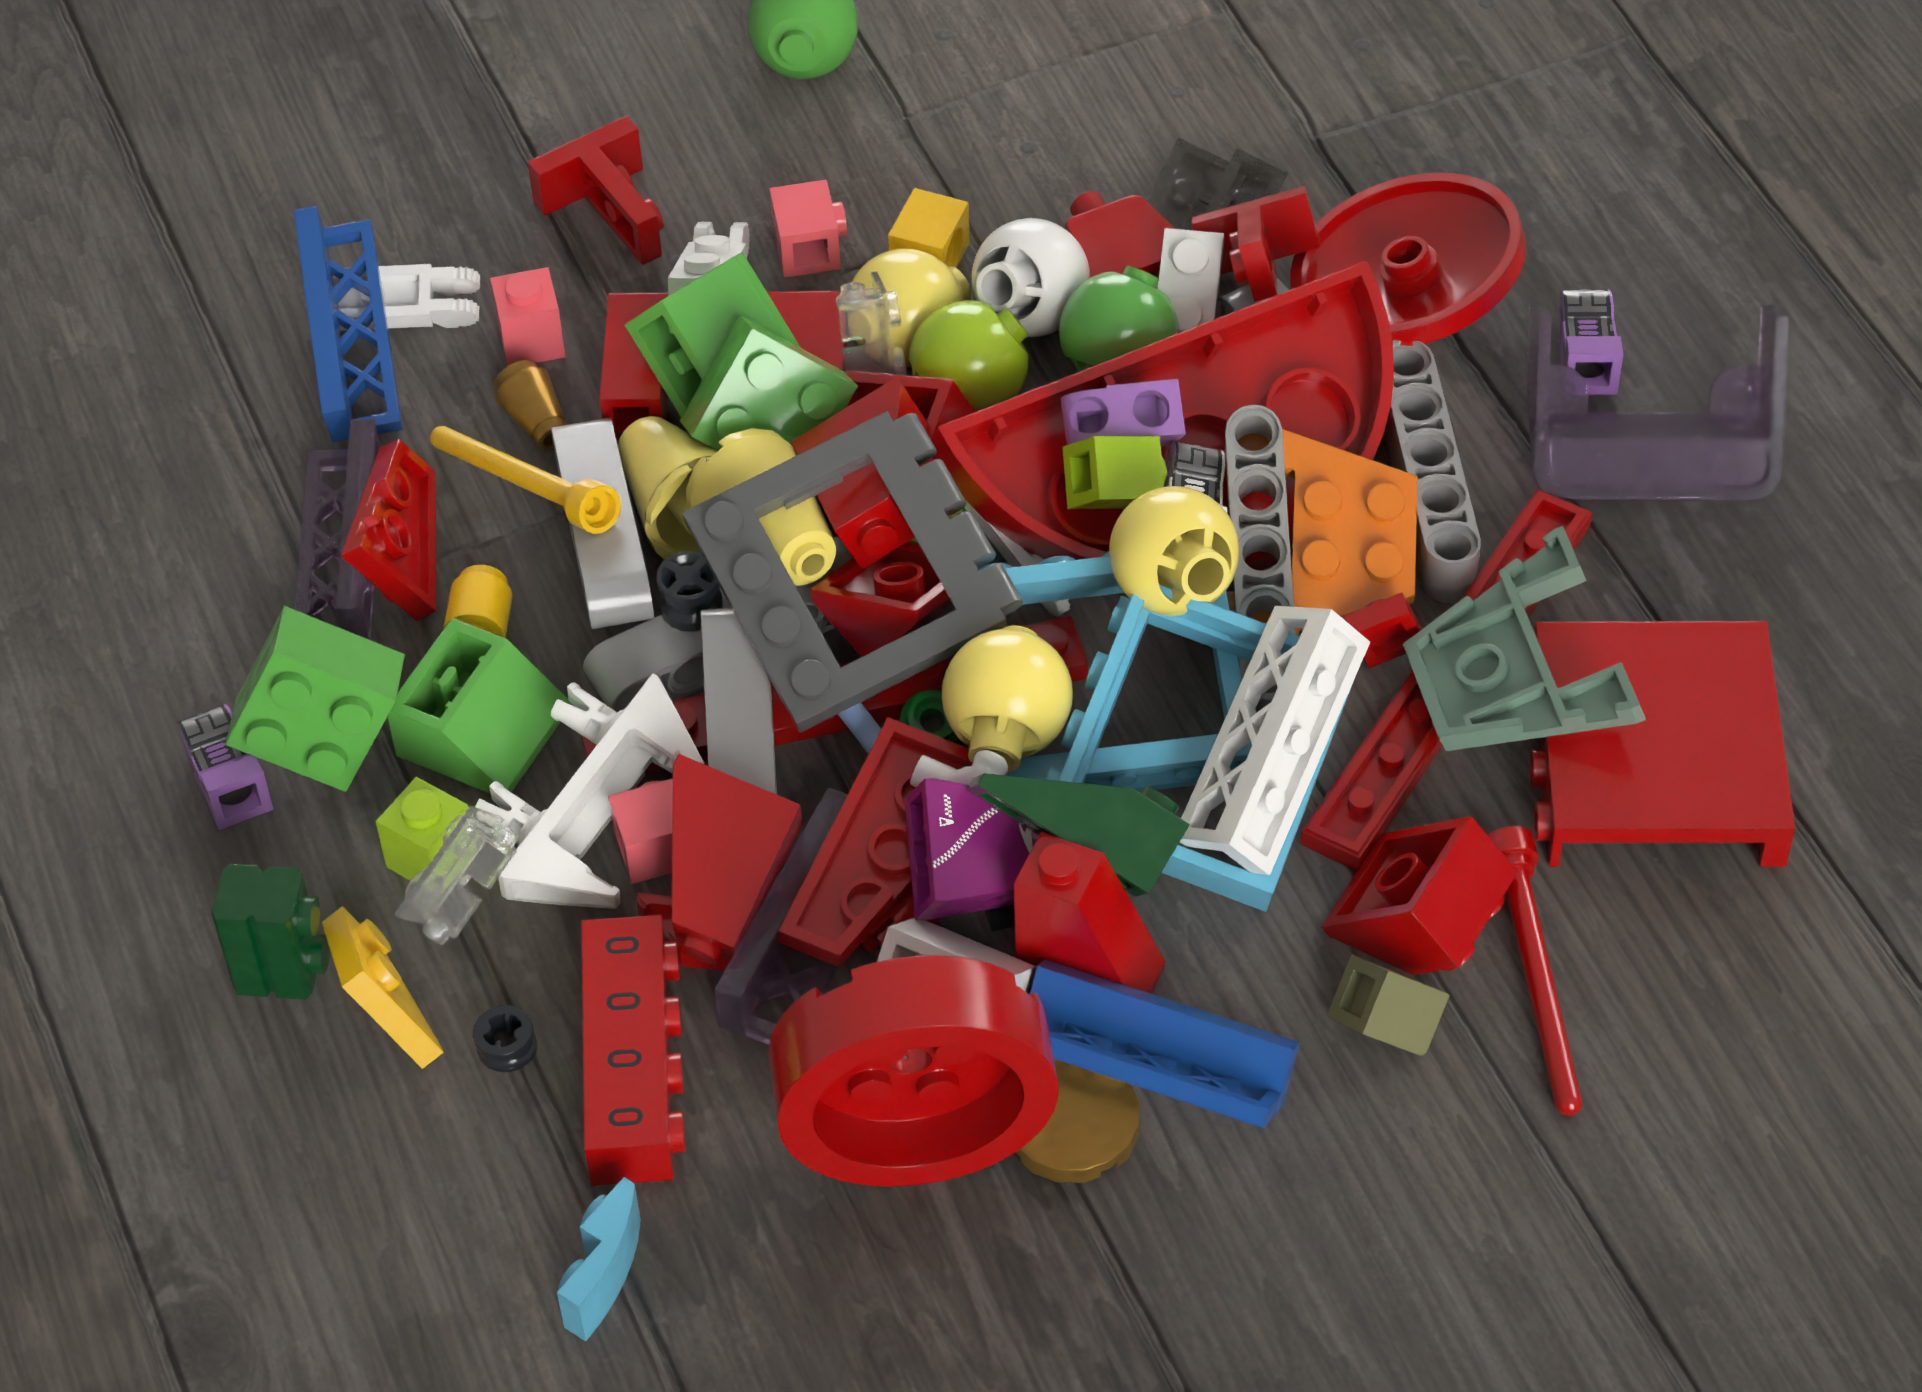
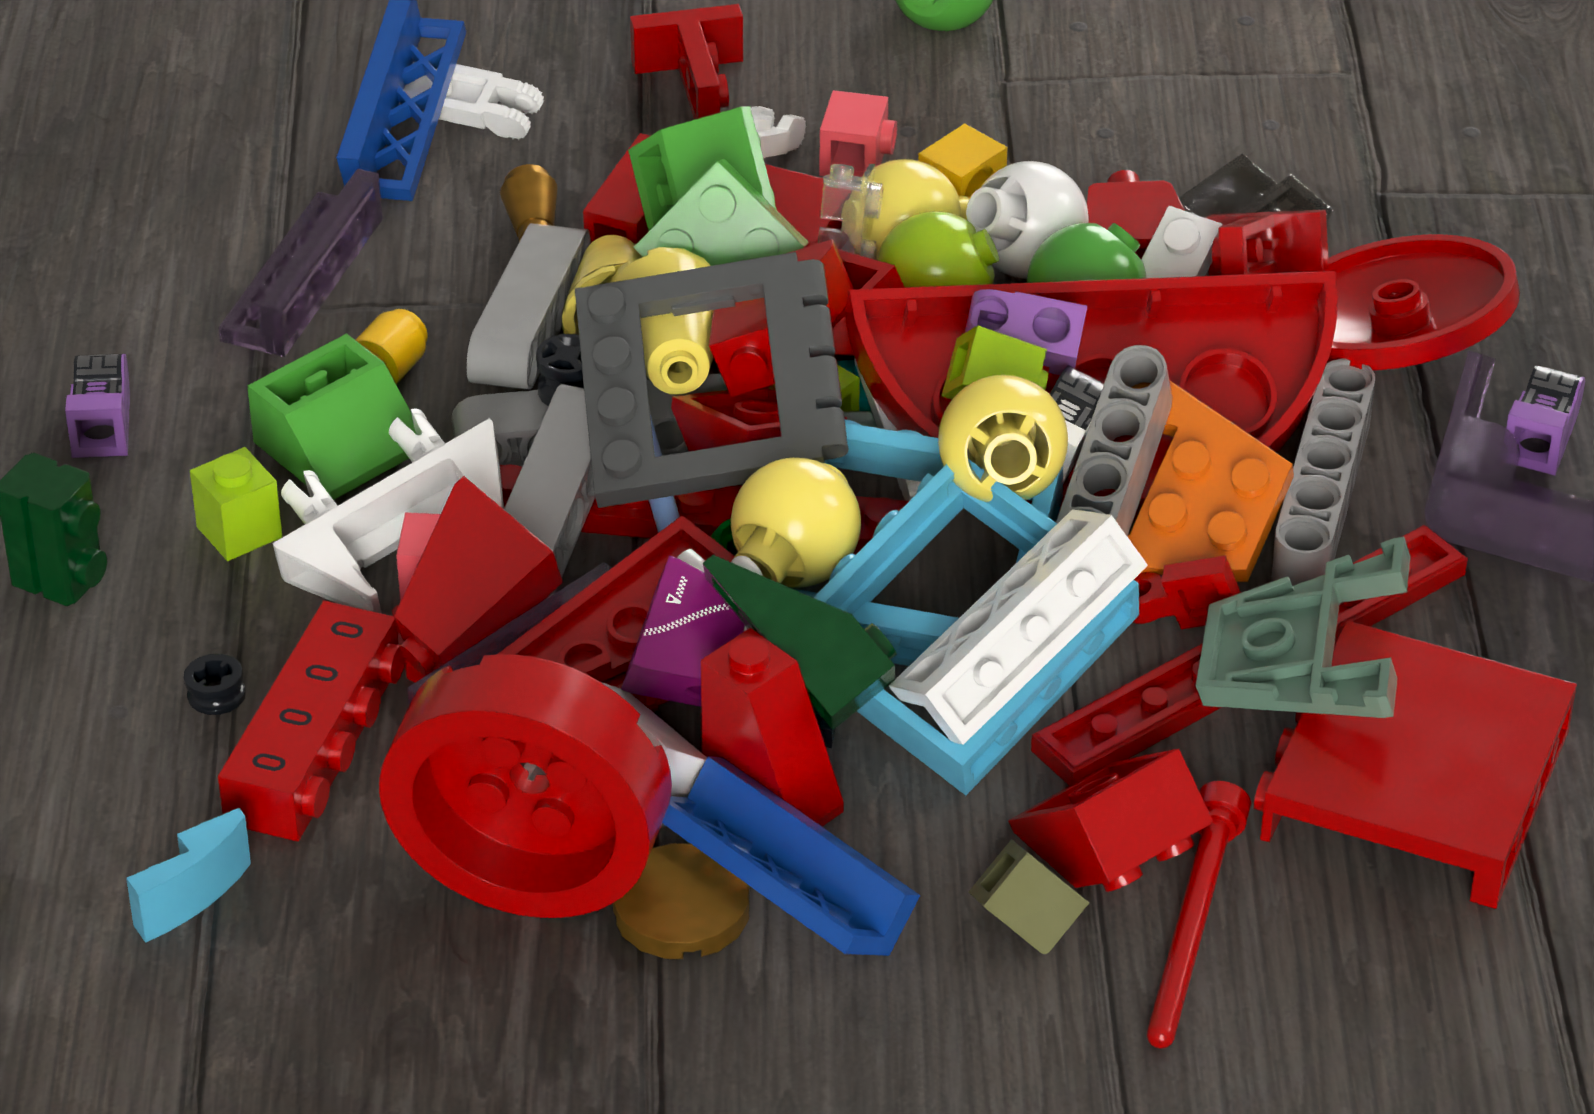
camera: 20 degrees right, 10 degrees down
(315, 699) = (190, 359): bright green brick -> none
(377, 986) = (123, 600): yellow wing -> none
(396, 530) = (350, 264): red wing -> none
(472, 847) = (253, 517): clear hinge -> none
(528, 316) = (565, 136): coral brick -> none
(586, 503) = (509, 273): yellow piece -> none

